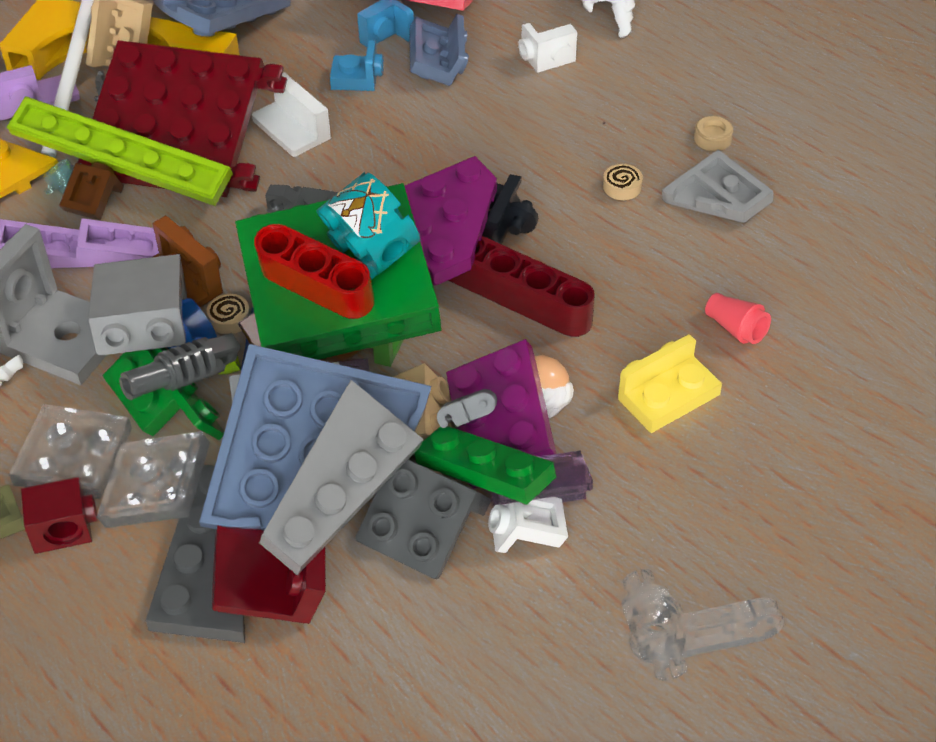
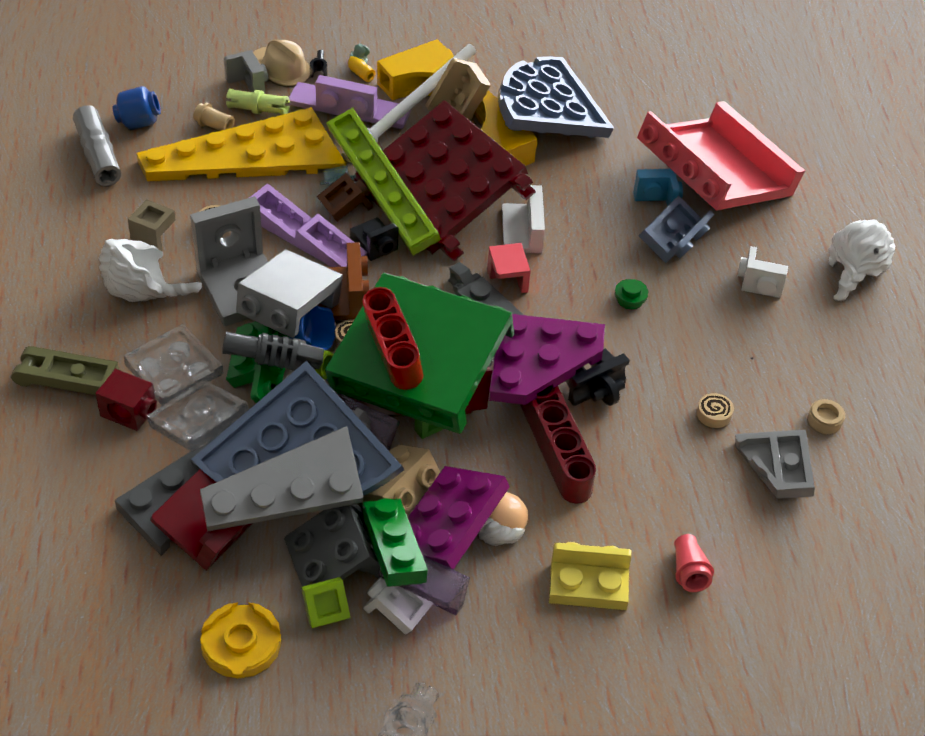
camera: 35 degrees right, 0 degrees up
(153, 206) = (376, 238): none -> black bracket
(319, 158) = (509, 262): none -> coral panel
(357, 72) = (605, 213): dark azure bracket -> none
(369, 223) = (446, 327): teal brick -> none
(412, 662) = (240, 640): none -> yellow tile
(451, 126) = (631, 293): none -> green plate
(464, 567) = (325, 602): none -> lime plate
(467, 408) = (418, 497): piece -> none

